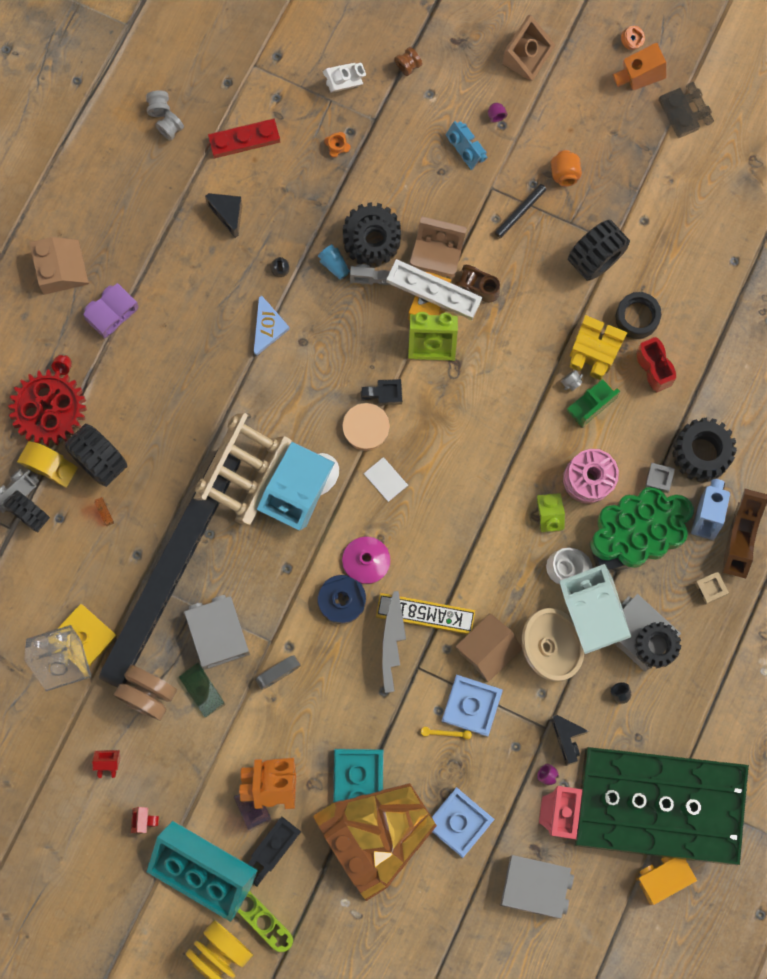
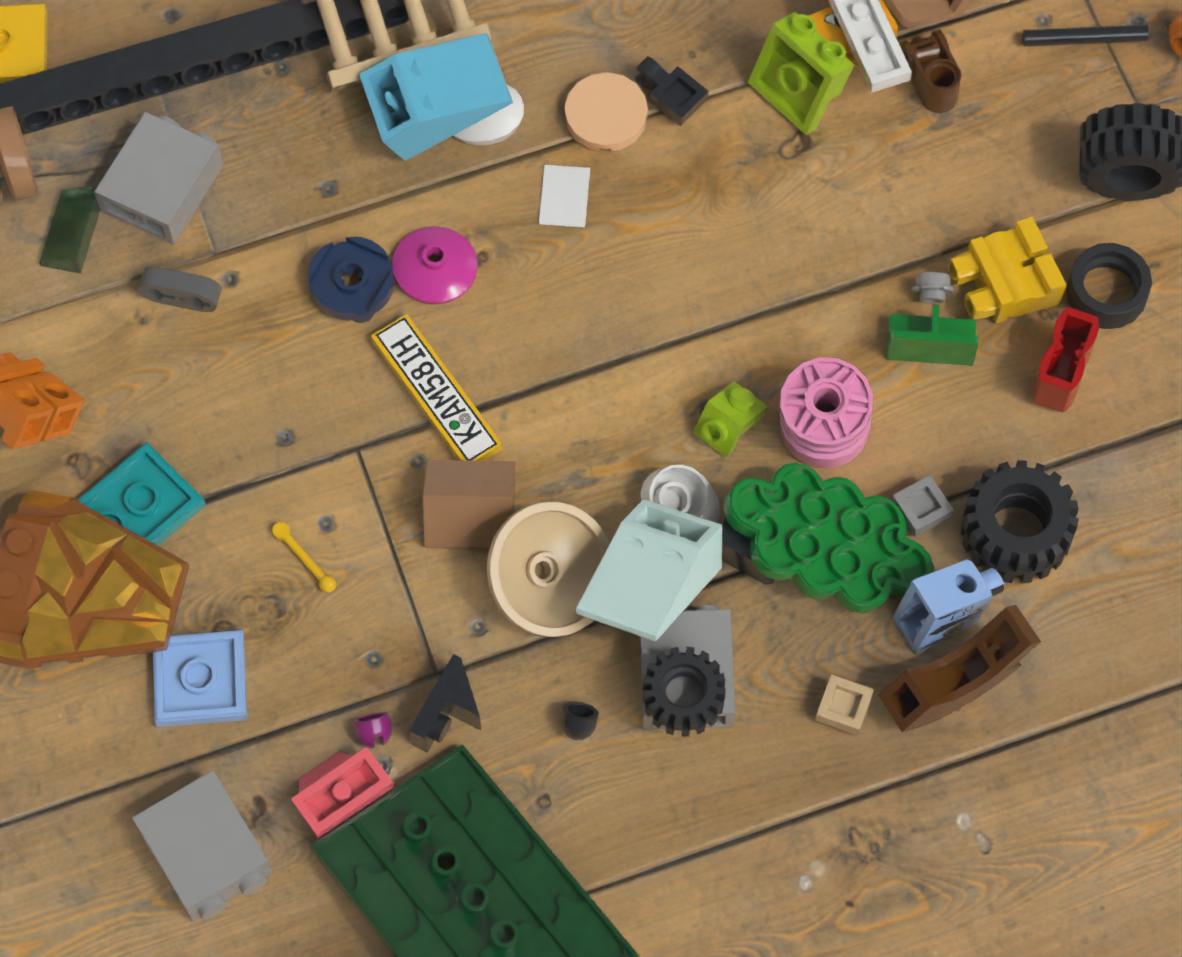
camera: 50 degrees right, 10 degrees down
(393, 632) = (364, 368): light grey slope -> none
(472, 705) = (372, 555): light blue tile -> none

